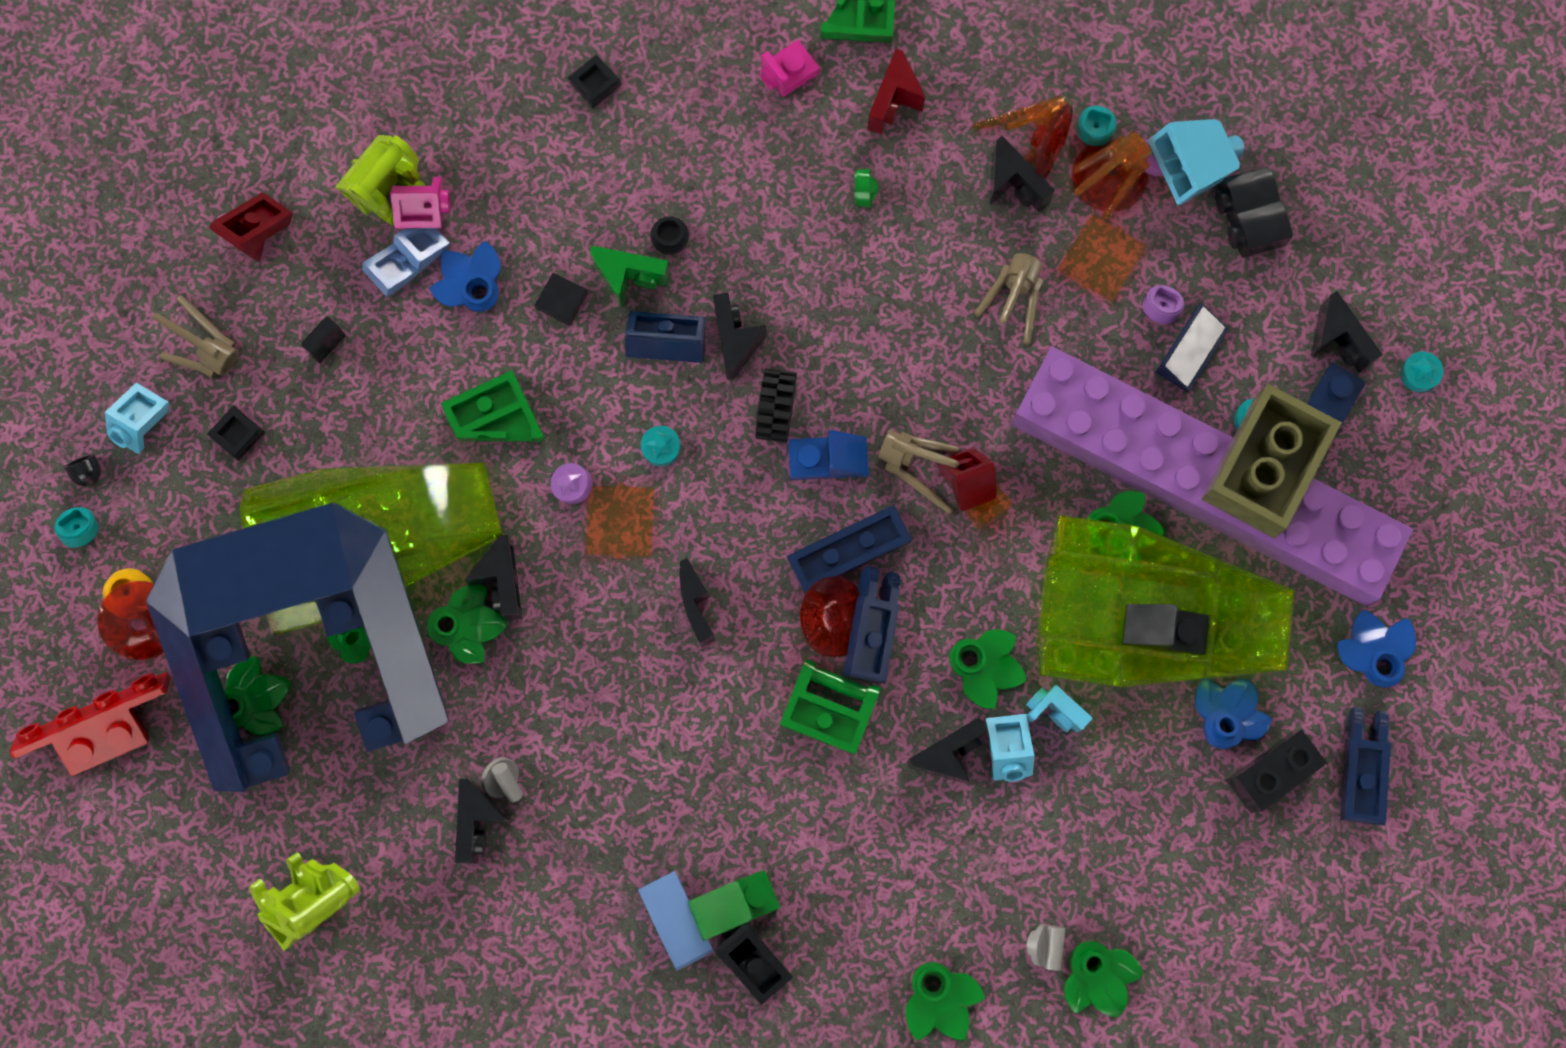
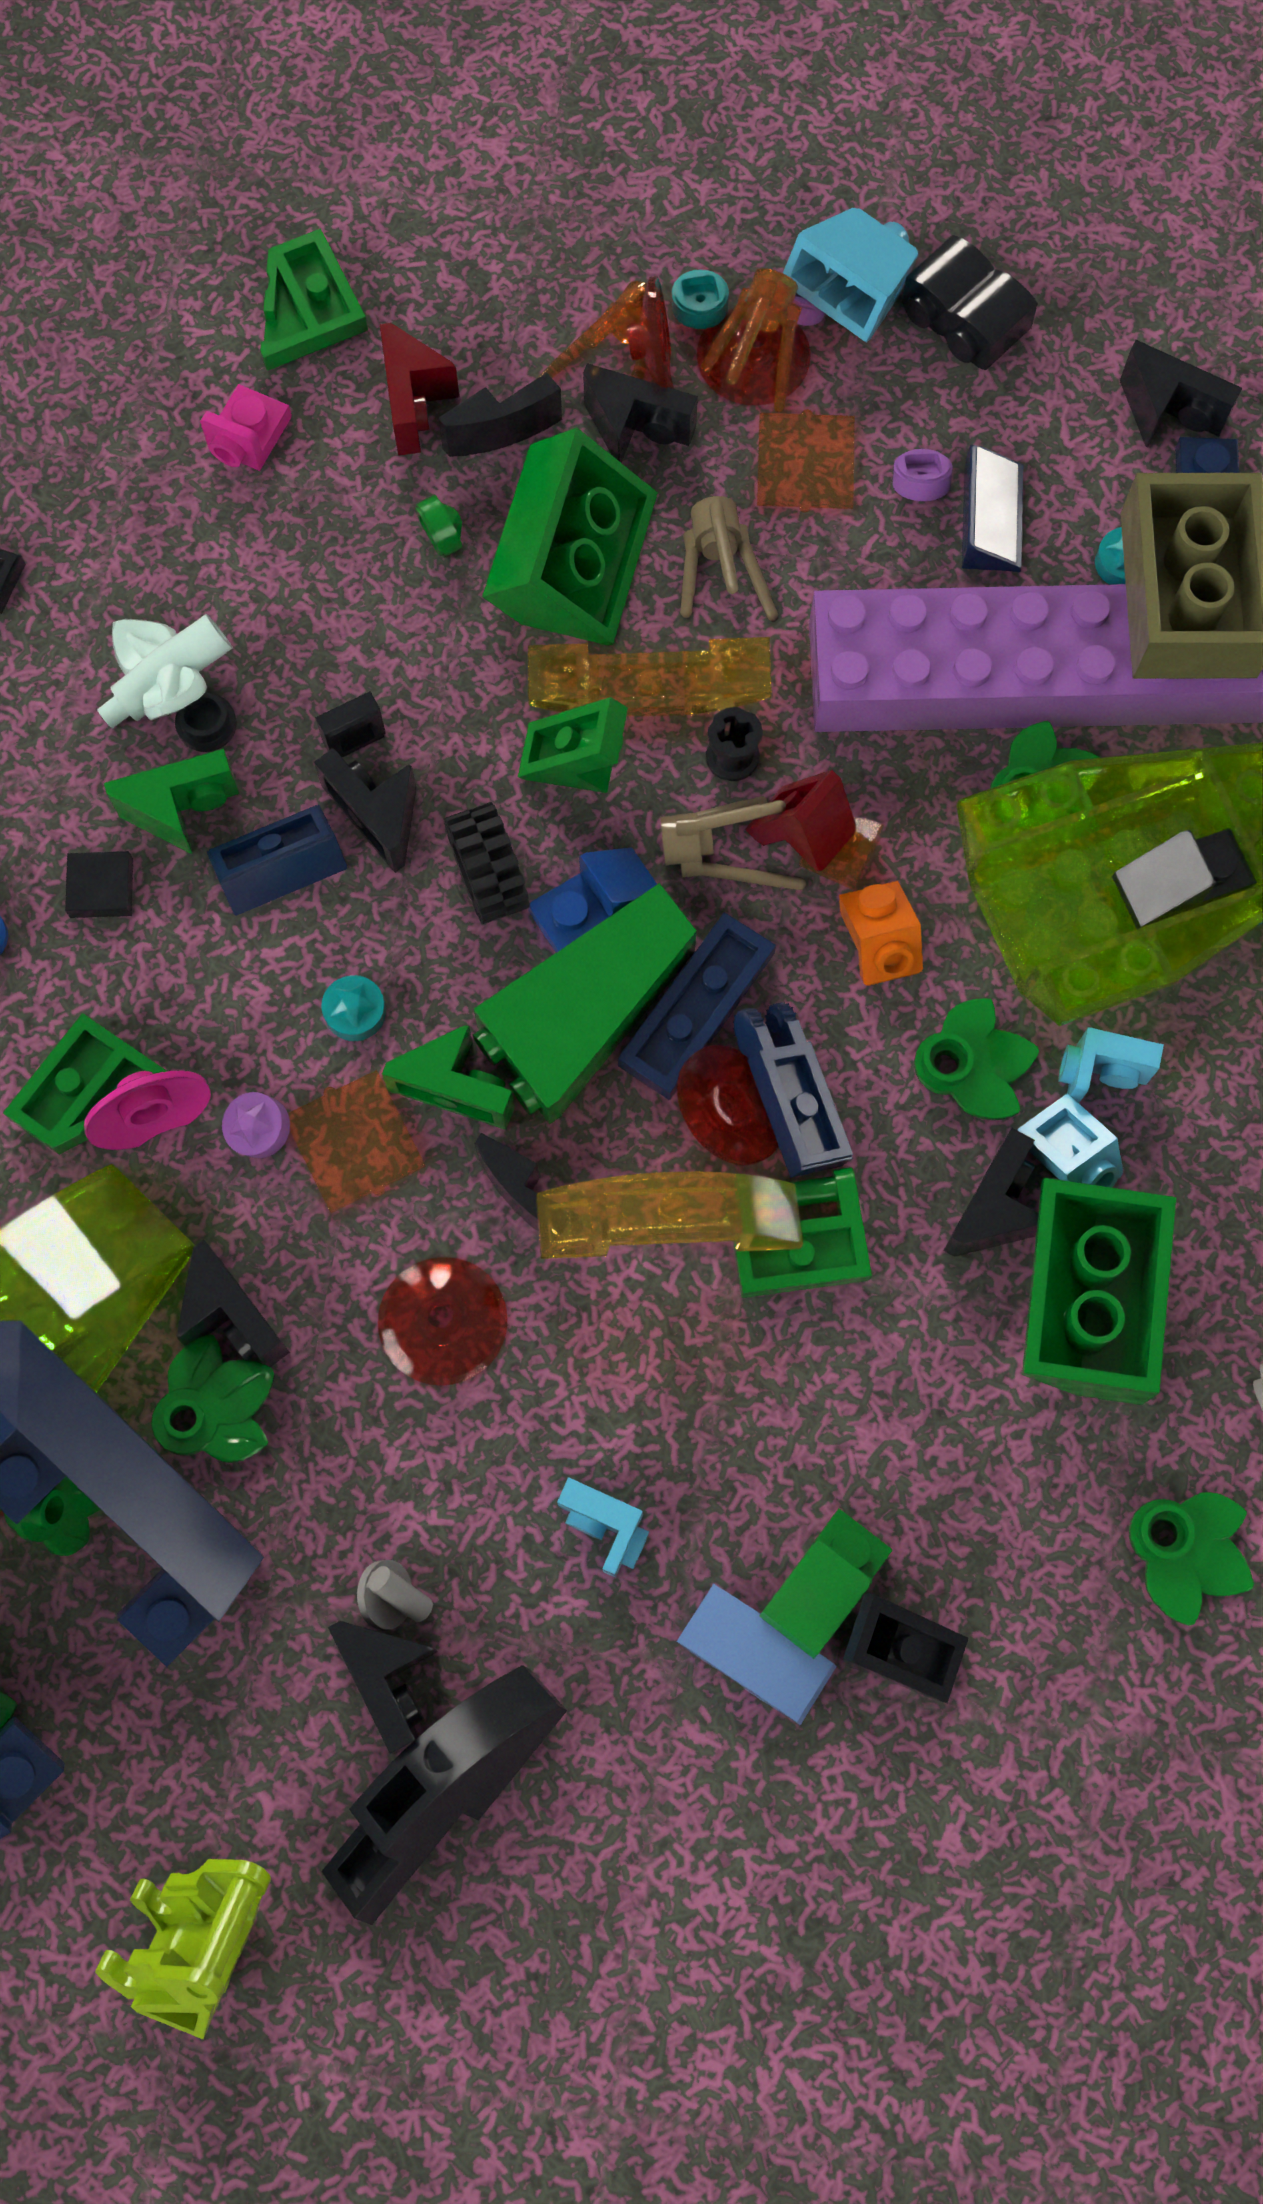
camera: 30 degrees left, 5 degrees down
(475, 888) = (443, 1773): none -> black slope
(516, 442) = (146, 1107): none -> dark pink dish
(627, 661) = (449, 1352): none -> clear red dish
(634, 798) = (595, 1512): none -> medium azure bracket
(661, 191) = (160, 667): none -> light aqua plant
(682, 509) = (435, 1078): none -> green slope
(747, 282) = (351, 725): none -> black tile
(762, 659) = (668, 1209): none -> clear yellow slope
(786, 512) = (582, 1001): none -> green slope
(865, 362) = (575, 746): none -> green slope
(923, 139) = (486, 425): none -> black slope
(931, 345) = (652, 683): none -> clear yellow slope
(934, 237) = (571, 539): none -> green slope
(967, 406) = (746, 734): none -> black bush
(971, 832) = (1099, 1291): none -> green slope
(977, 564) = (883, 932): none -> orange bracket

